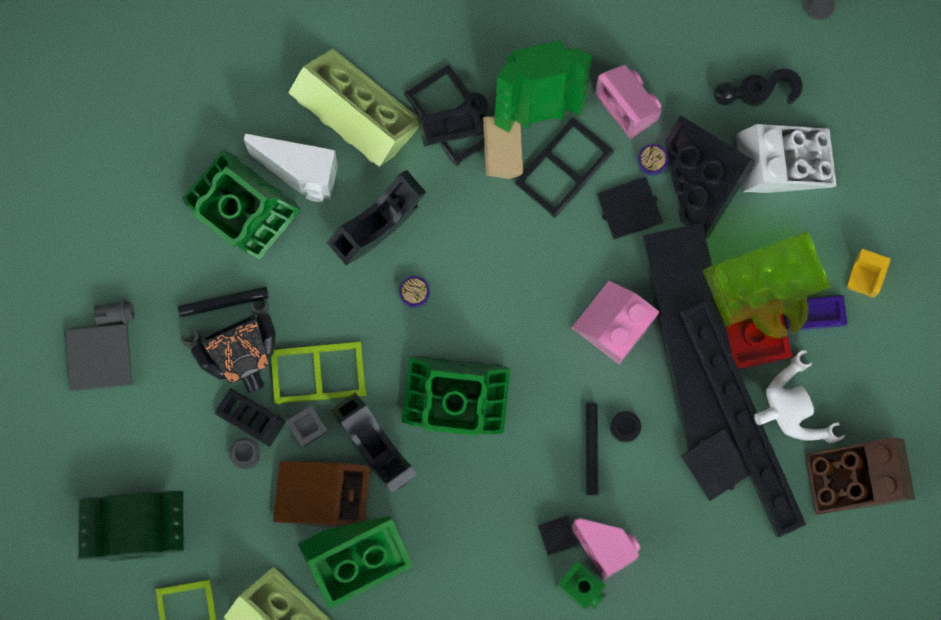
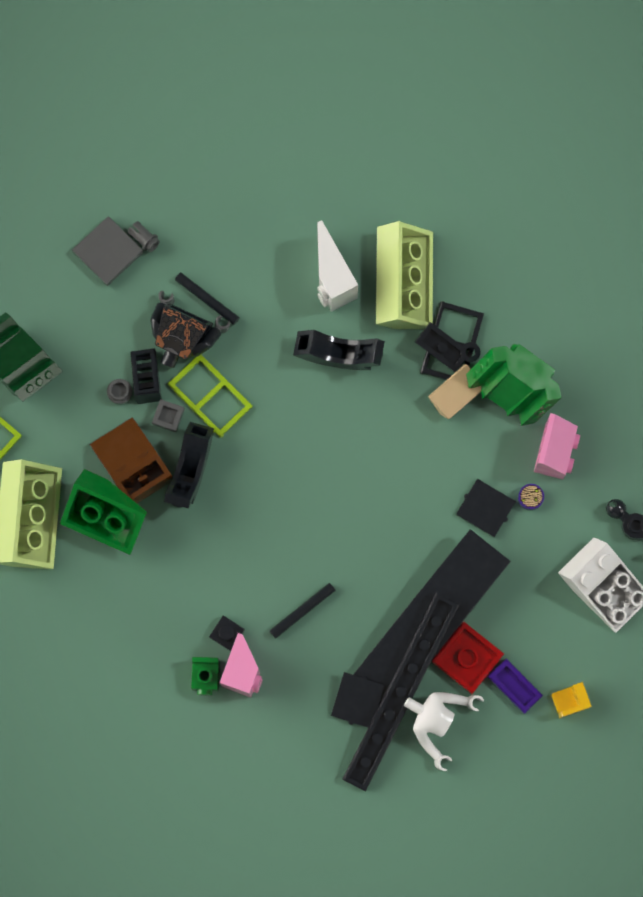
camera: 55 degrees right, 0 degrees up
(240, 205) = (278, 257): green slope -> none
(414, 292) = (313, 413): tile -> none
(456, 396) = (265, 495): green slope -> none
(581, 181) = (477, 424): black window -> none
(615, 321) = (399, 558): bright pink slope -> none
(625, 427) = (335, 621): black tile -> none
(704, 173) = (548, 537): black plate -> none
(769, 284) = (506, 638): clear neon green plate -> none
(860, 476) = (428, 802): reddish brown slope -> none

